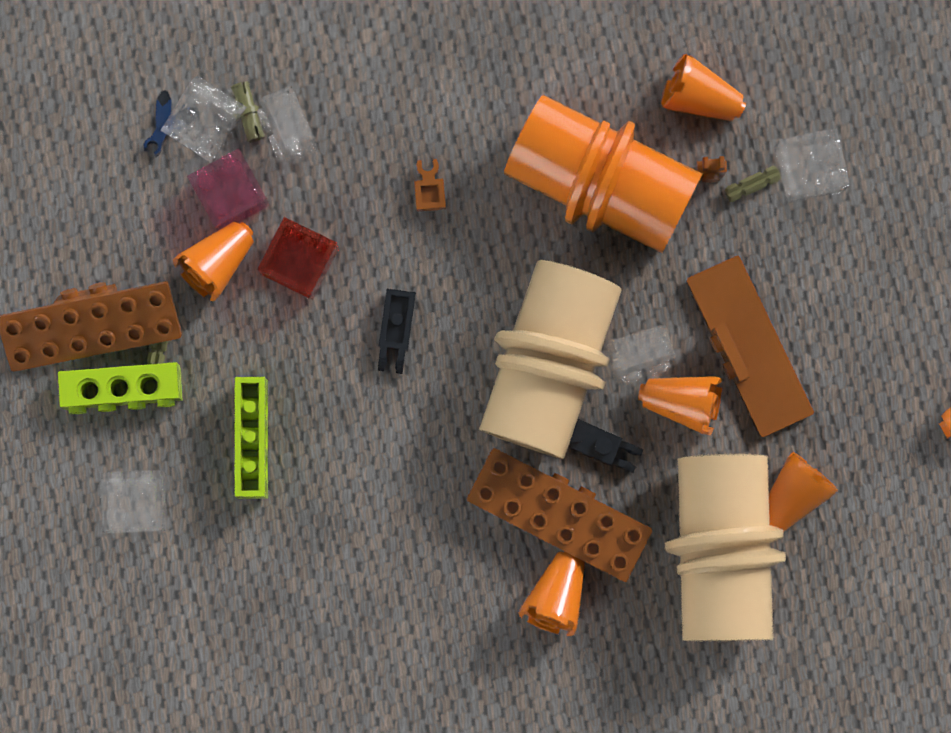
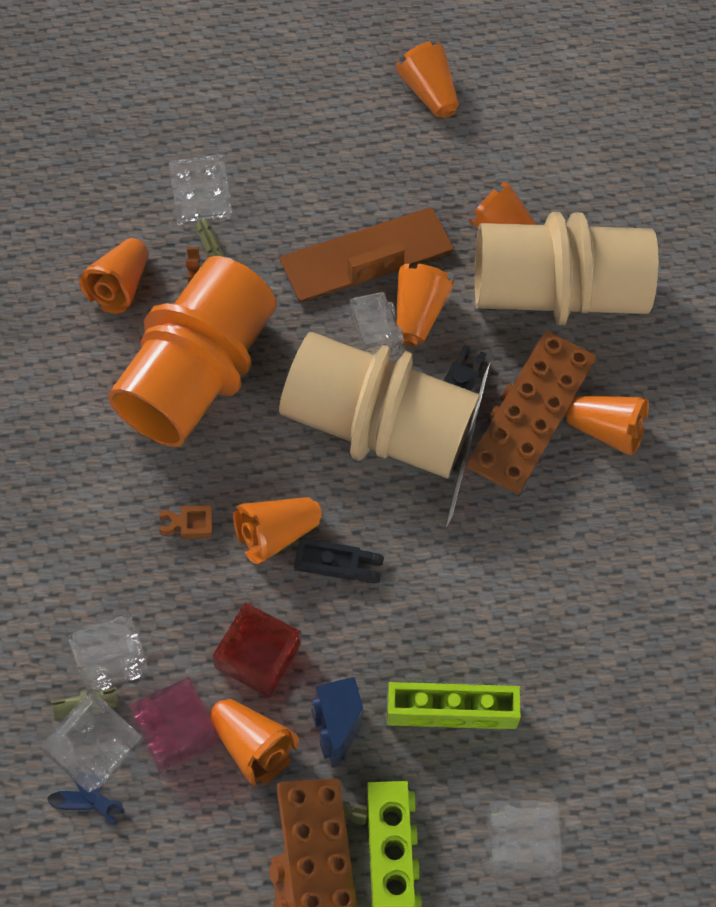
camera: 90 degrees left, 20 degrees down
(234, 334) = (339, 714): none -> dark blue slope
(426, 269) = (274, 525): none -> orange cone
(525, 452) = (467, 447): none -> white sticker

